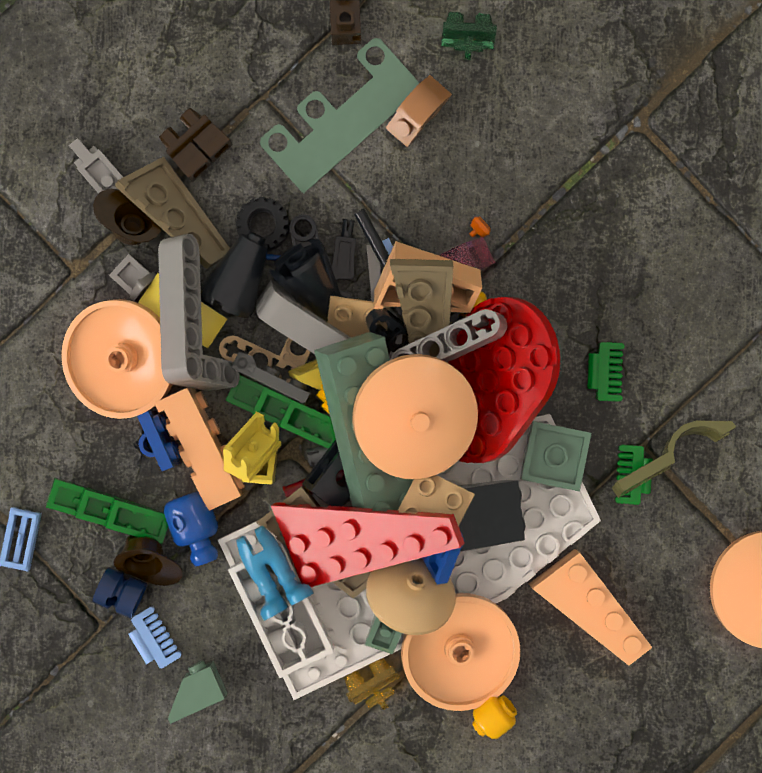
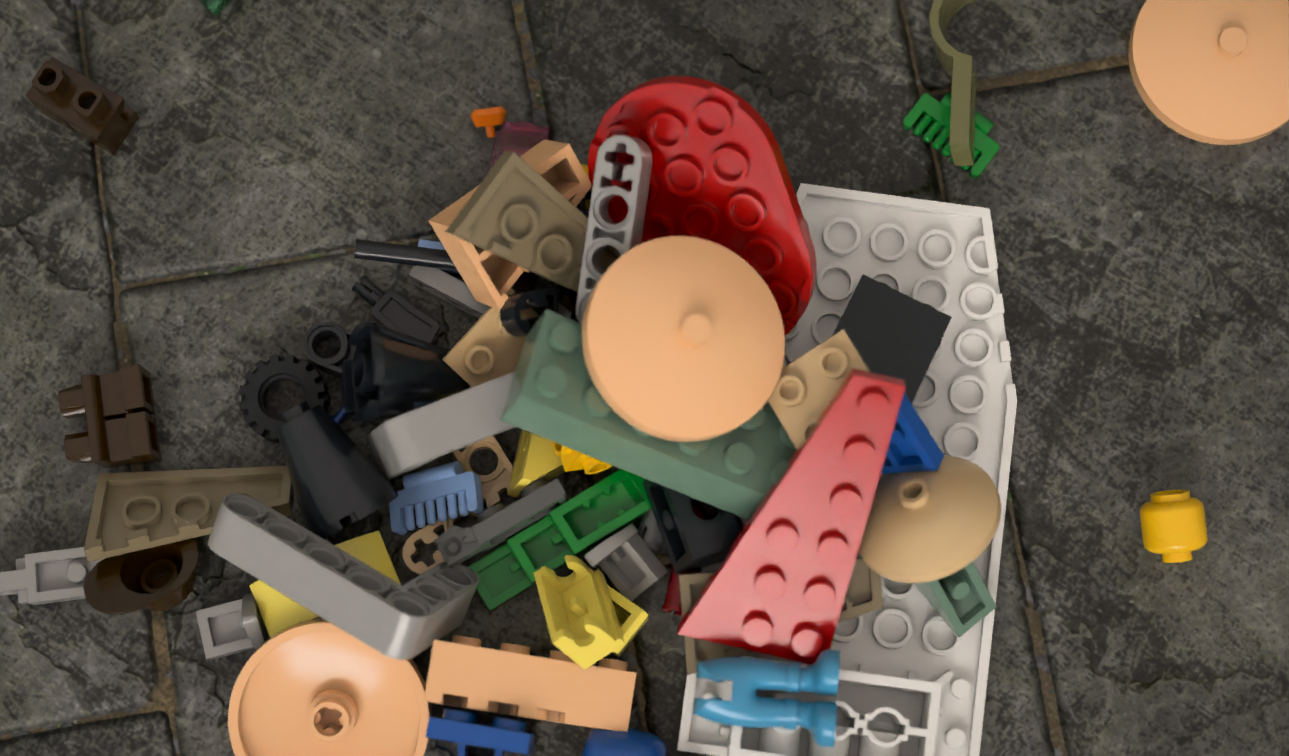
camera: 60 degrees left, 10 degrees down
(267, 333) = (433, 487): none -> light blue piece
(294, 454) = (627, 562): none -> light grey tile
(343, 129) = (234, 211): sand green piece -> none
(361, 690) = (1020, 688): clear yellow hips -> none
(418, 110) = (278, 96): medium nougat brick -> none
(465, 658) = (1067, 511): light nougat dish -> none
(555, 456) = (862, 208): sand green plate -> none
(585, 599) = (1096, 294): light nougat wedge -> none
(599, 371) = (788, 88): green piece -> none

